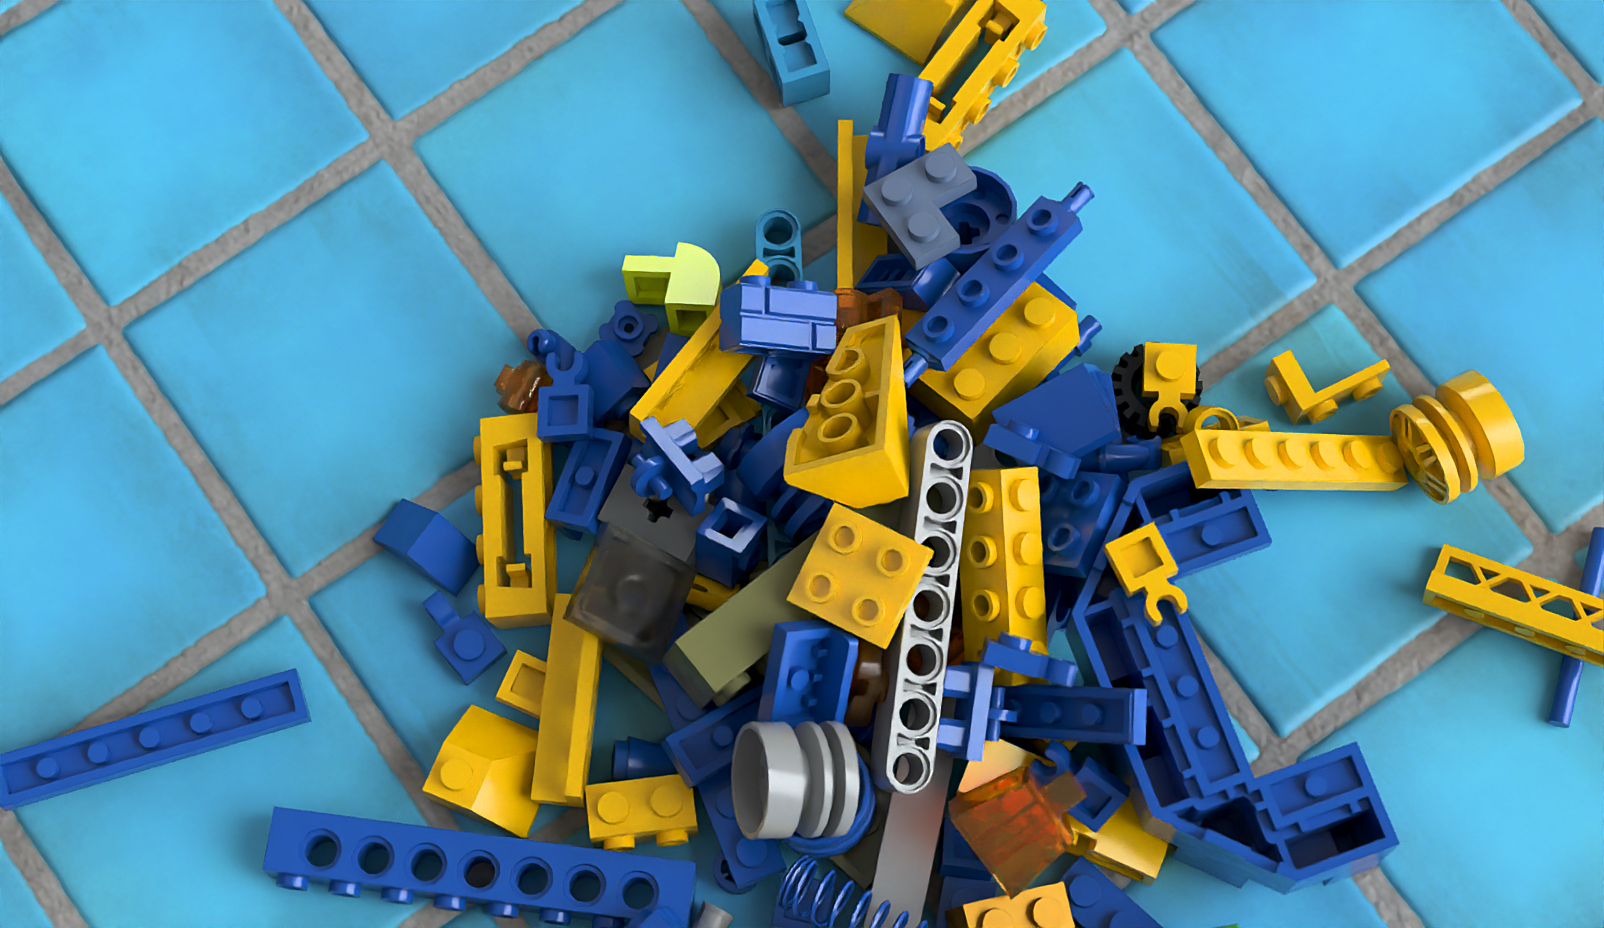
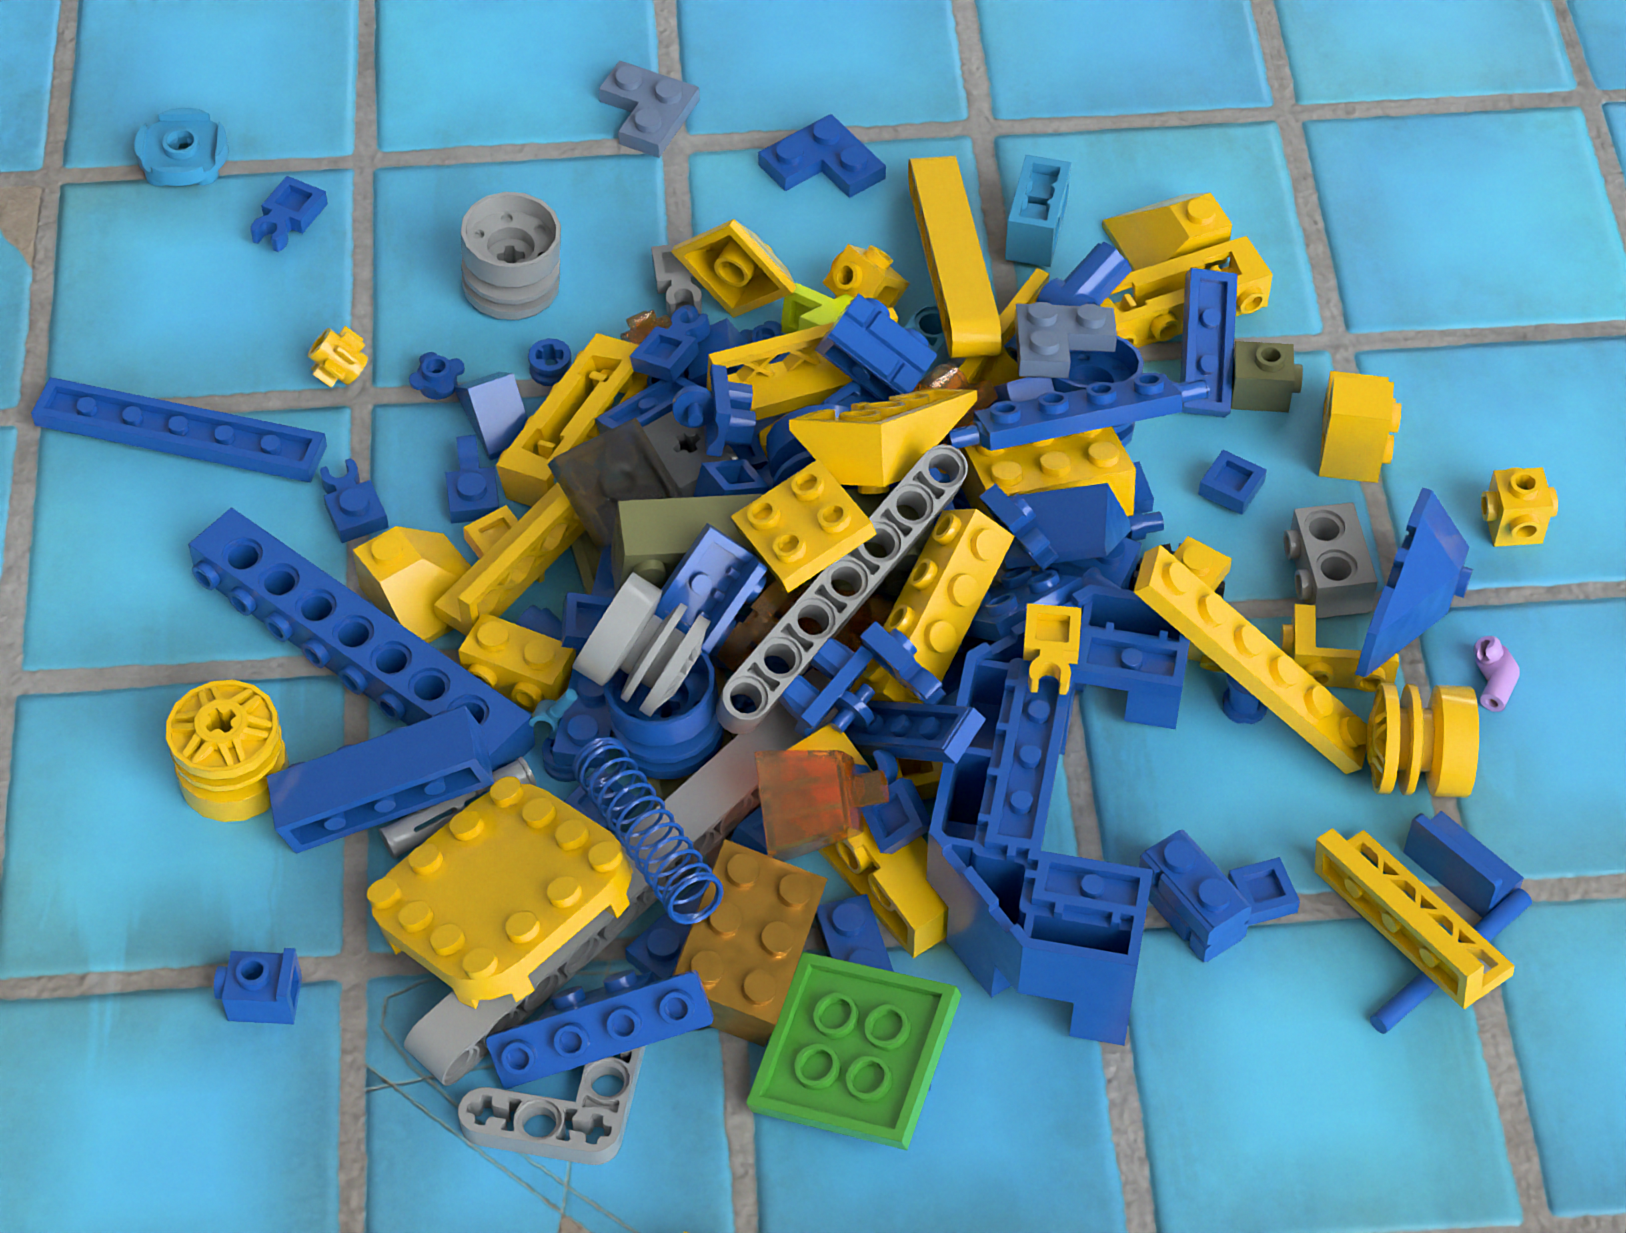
camera: 30 degrees right, 20 degrees down
(78, 429) = (288, 207): none -> blue plate
(248, 576) = (337, 356): none -> yellow gear
(343, 349) = (510, 255): none -> light grey wheel
(346, 102) = (656, 104): none -> sand blue plate
(359, 548) = (436, 375): none -> blue plate
(368, 724) = (352, 504): none -> blue plate
(448, 447) = (545, 350): none -> blue bush
(498, 295) = (675, 279): none -> light grey plate
(542, 70) = (823, 148): none -> blue plate
(567, 271) = (735, 267): none -> yellow slope
(682, 213) = (865, 273): none -> yellow brick
(709, 849) = (552, 711): none -> dark azure hand
(754, 148) = (954, 258): none -> yellow beam
(1032, 112) = (1209, 338): none -> blue plate
(1095, 116) = (1264, 376): none -> olive brick
(1133, 246) = (1232, 482): none -> blue plate
(1208, 125) = (1357, 426): none -> yellow brick
(1277, 276) = (1331, 560): none -> light grey brick
(1352, 697) = (1195, 896): none -> blue brick
(1358, 265) = (1420, 584): none -> wedge
(1391, 136) = (1518, 506): none -> yellow brick
(1400, 655) = (1266, 889): none -> blue plate
(1463, 315) = (1498, 669): none -> lavender arm
(1540, 528) = (1460, 862): none -> blue panel

